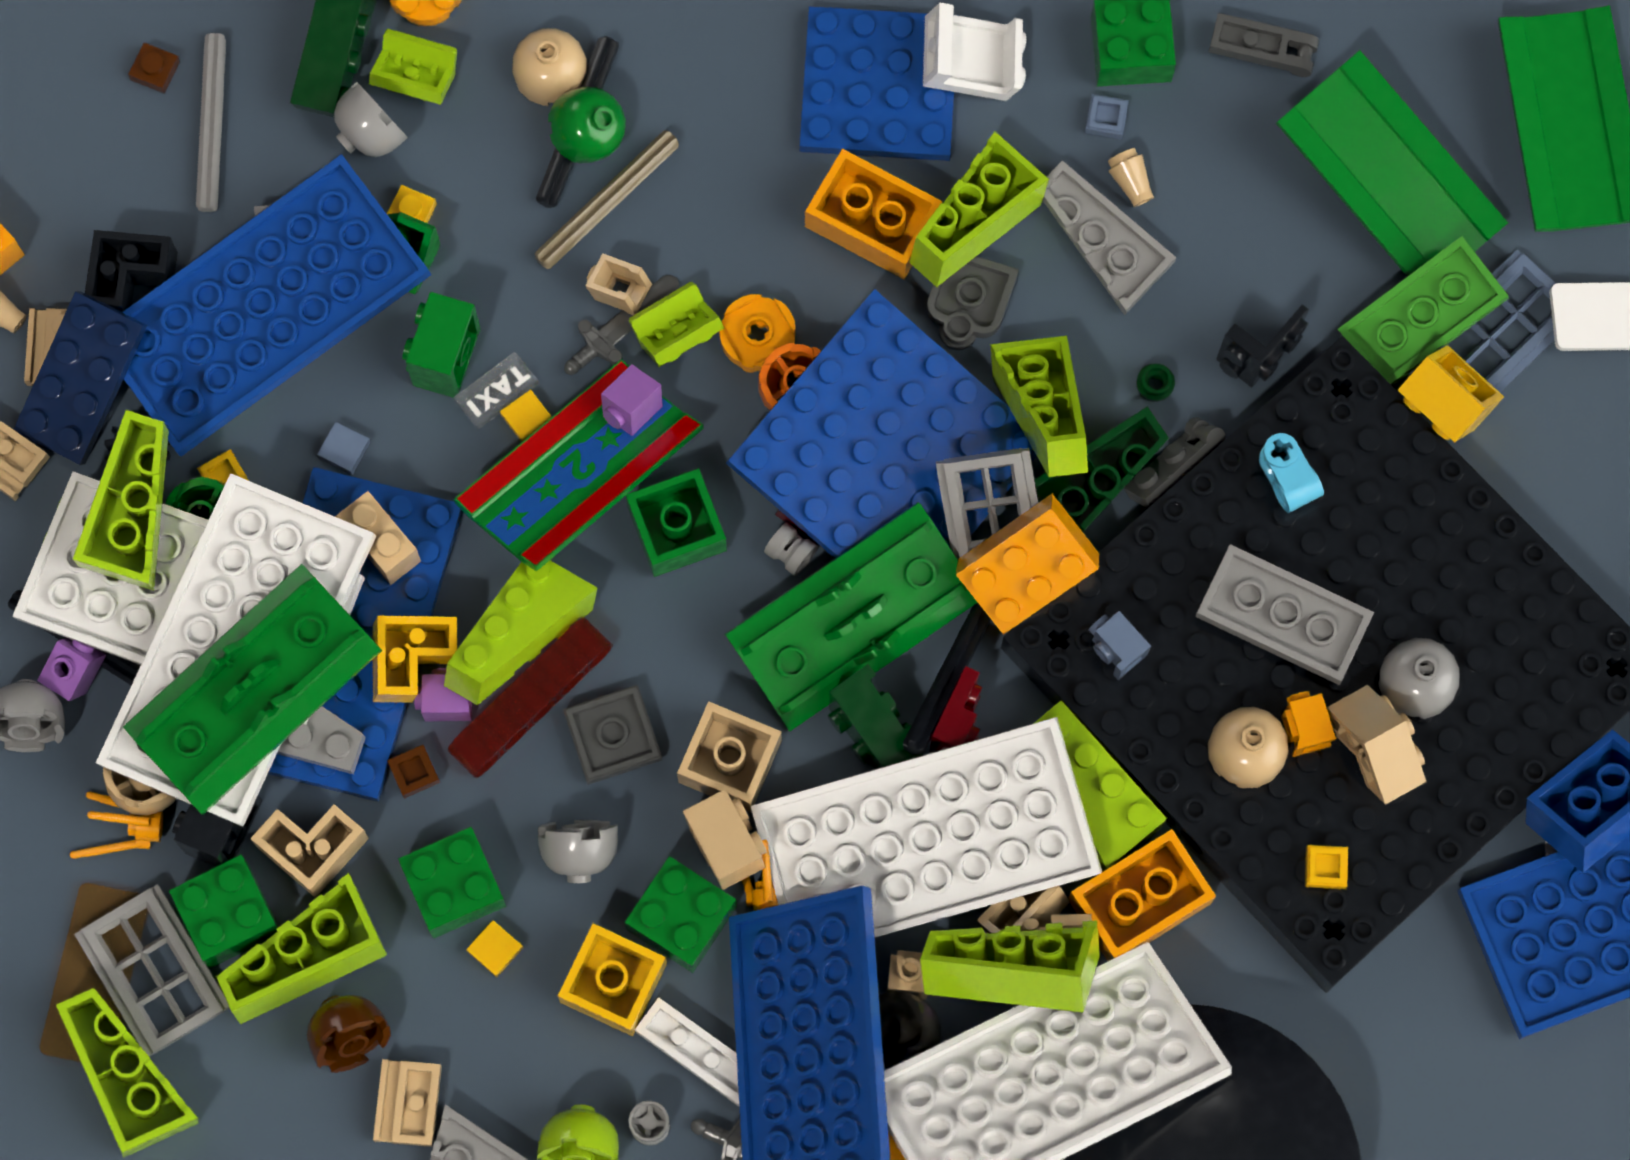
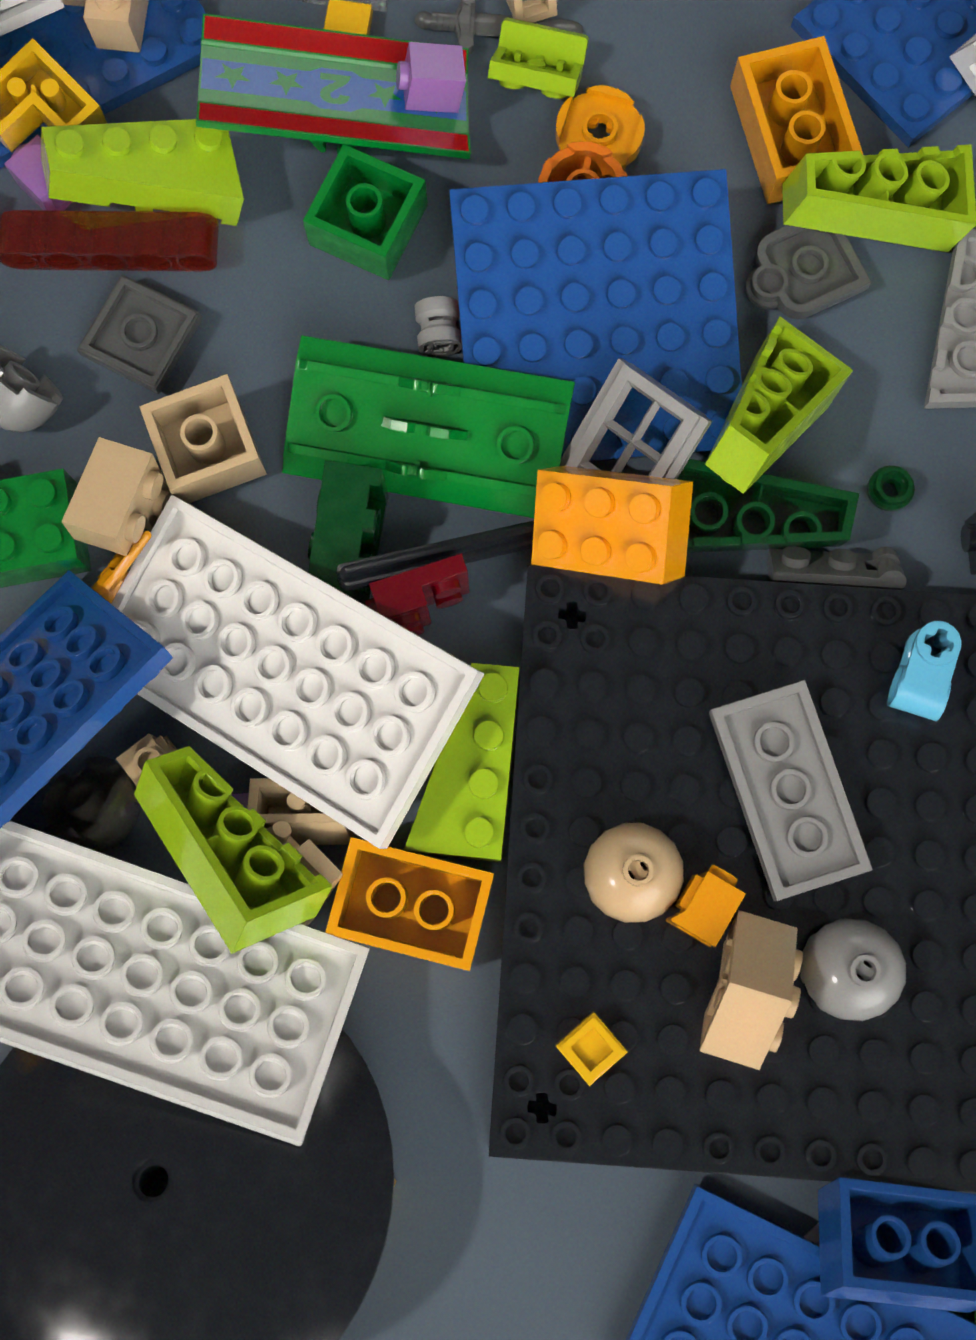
camera: 50 degrees right, 5 degrees up
(1118, 643) = (614, 666): sand blue brick -> none

